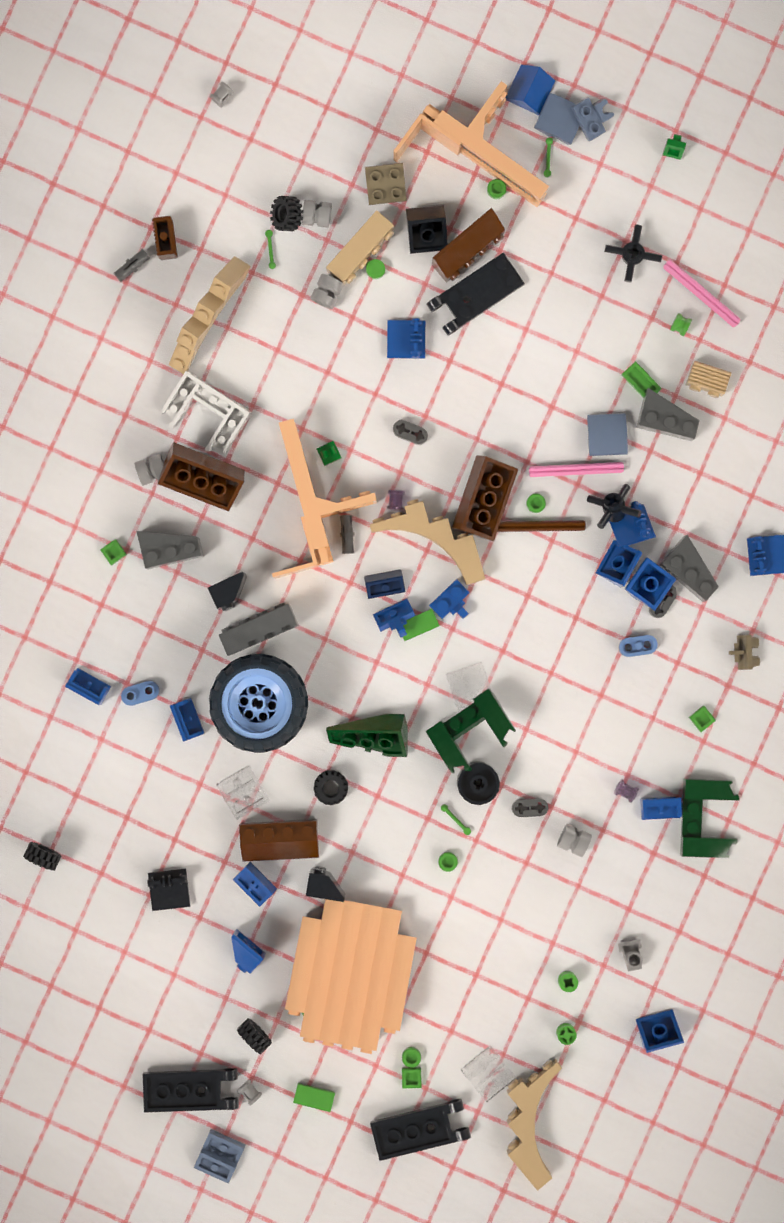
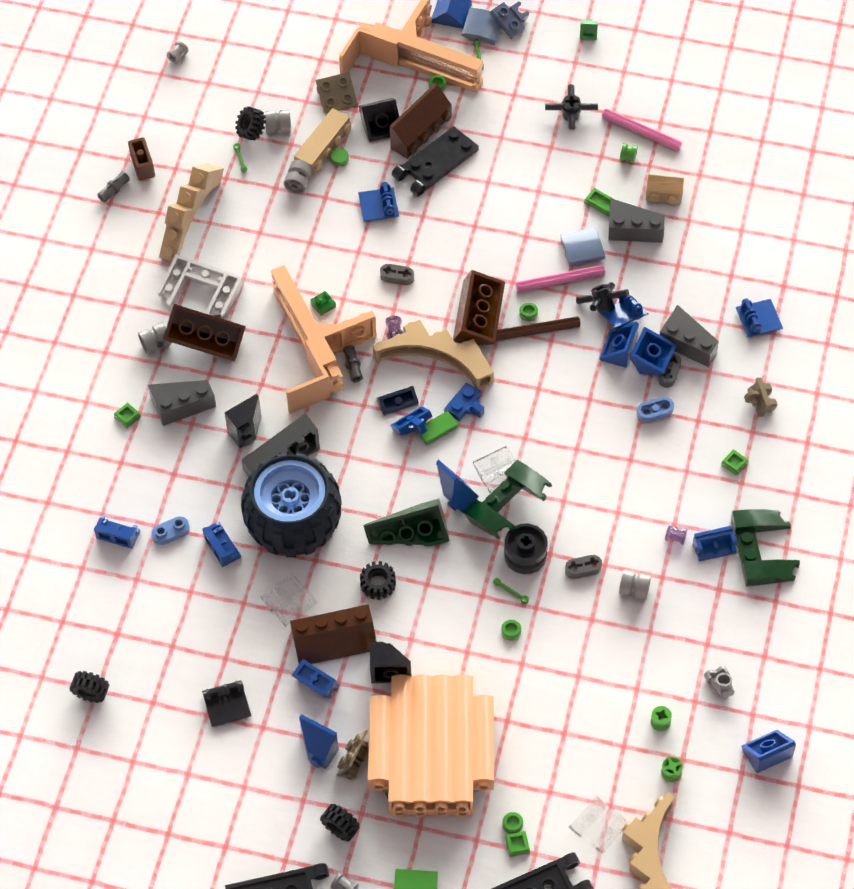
camera: 10 degrees left, 30 degrees down
(276, 969) = (355, 755): none -> dark tan hinge
(423, 705) = (455, 489): none -> blue slope

